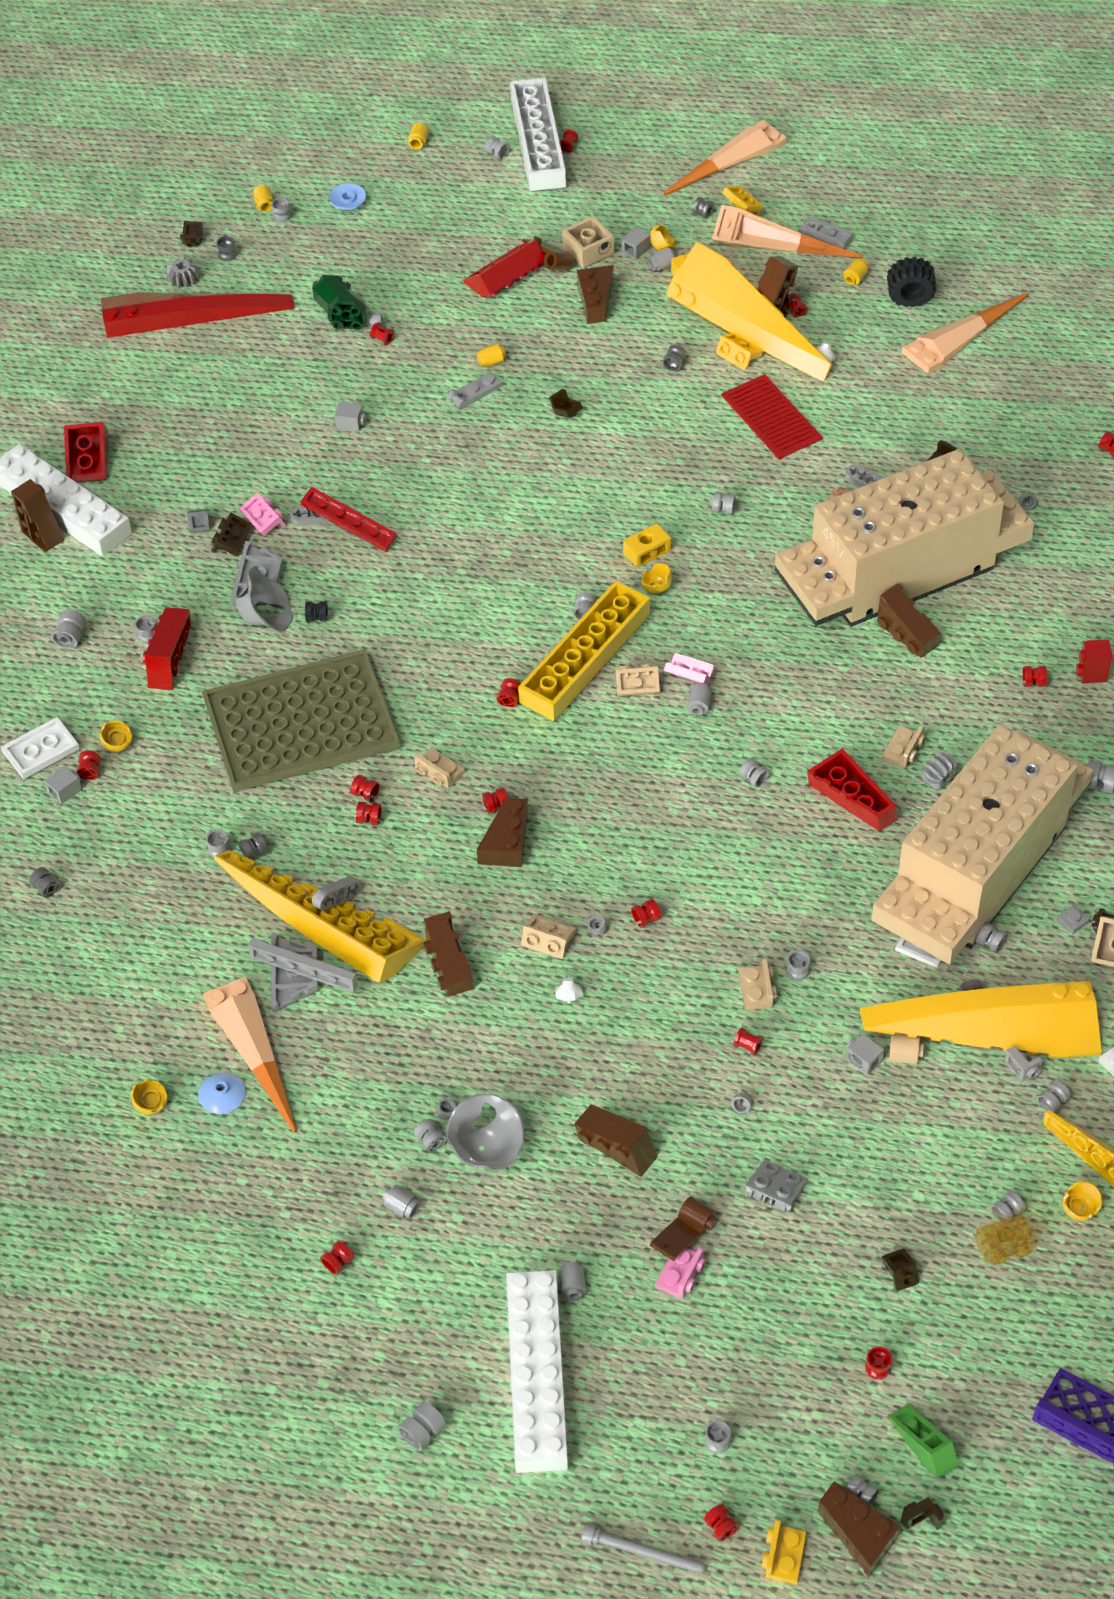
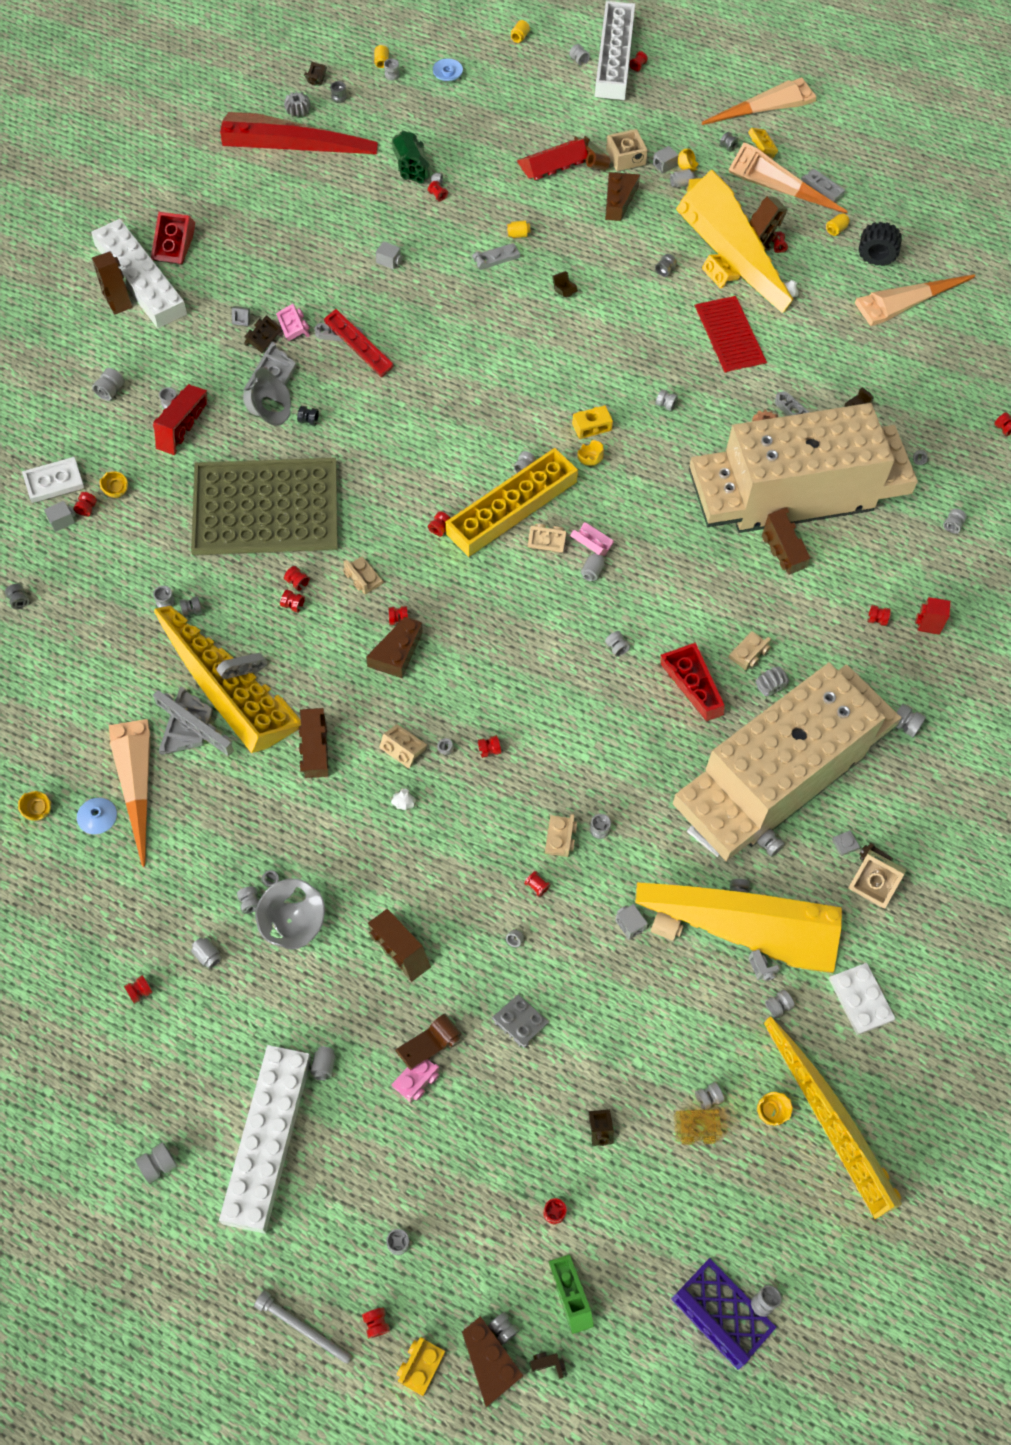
camera: 10 degrees right, 10 degrees up
(1087, 558) = (955, 520): none -> light grey wheel

